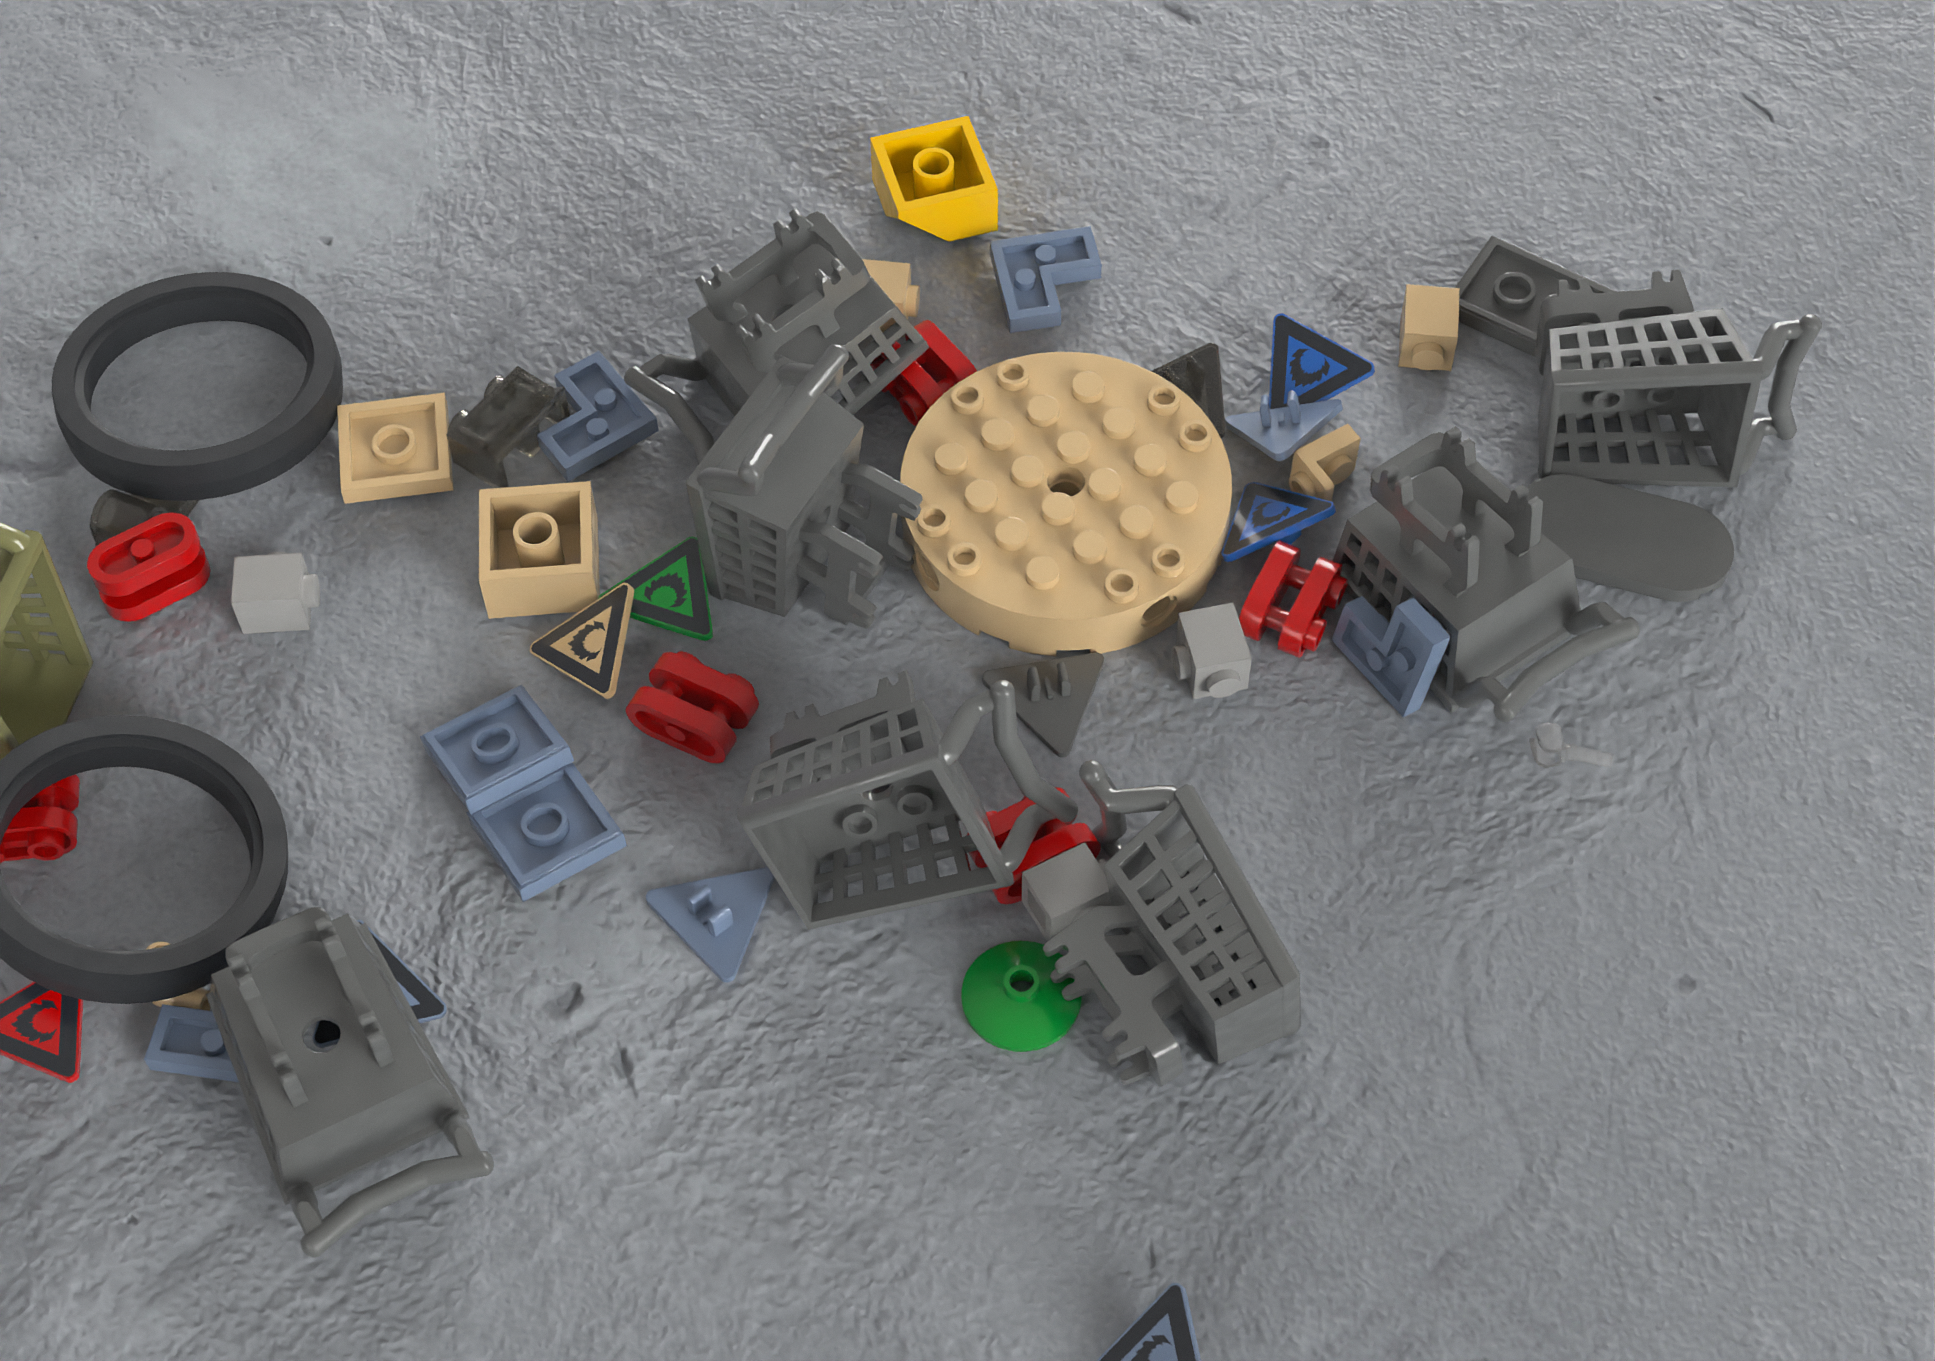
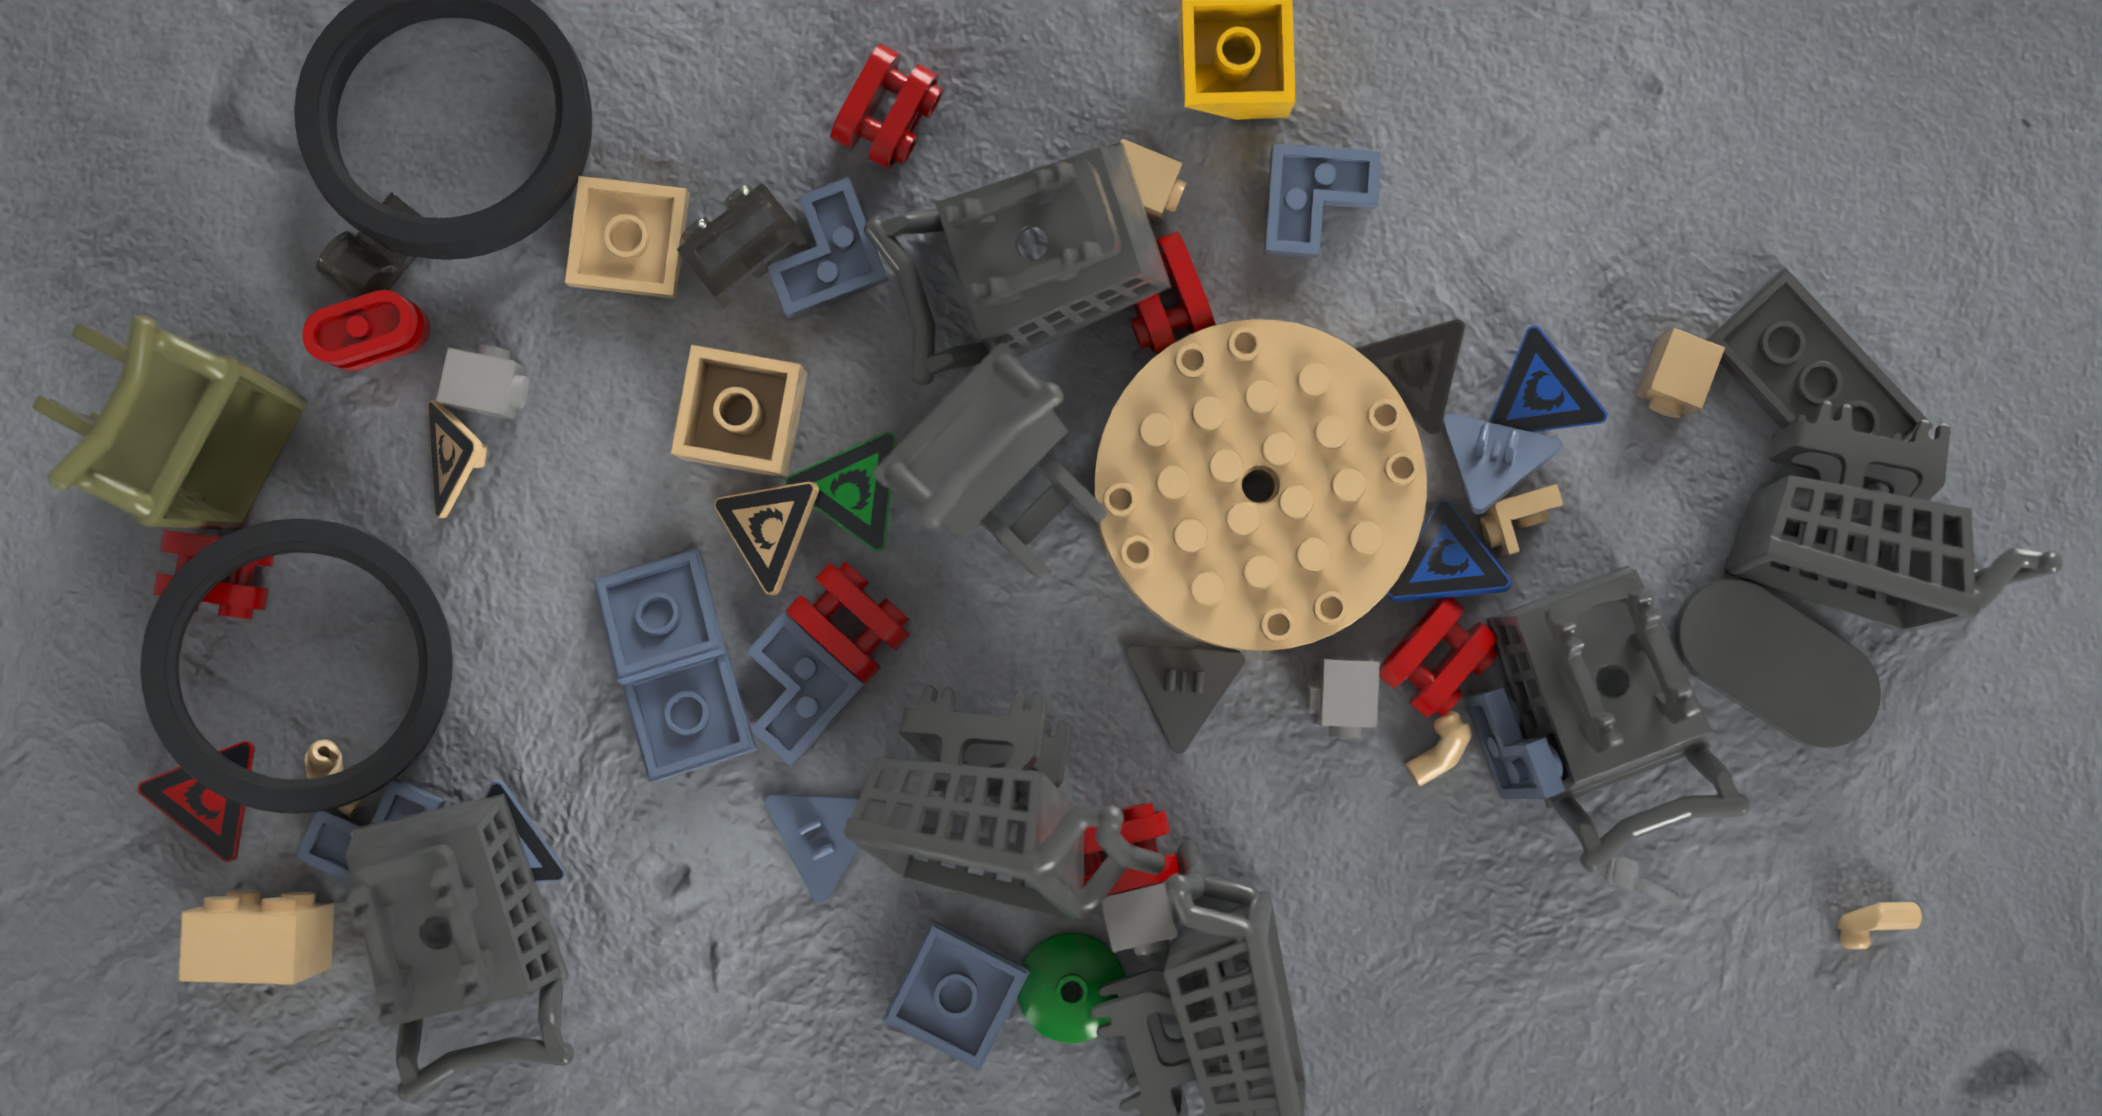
camera: 10 degrees right, 30 degrees up
(116, 1132) = (256, 939): none -> tan brick
(250, 654) = (453, 456): none -> piece
(636, 309) = (894, 137): none -> red brick
(670, 778) = (814, 684): none -> sand blue plate
(898, 1022) = (956, 994): none -> sand blue plate
(1332, 680) = (1445, 754): none -> tan arm
(1815, 717) = (1879, 916): none -> tan arm

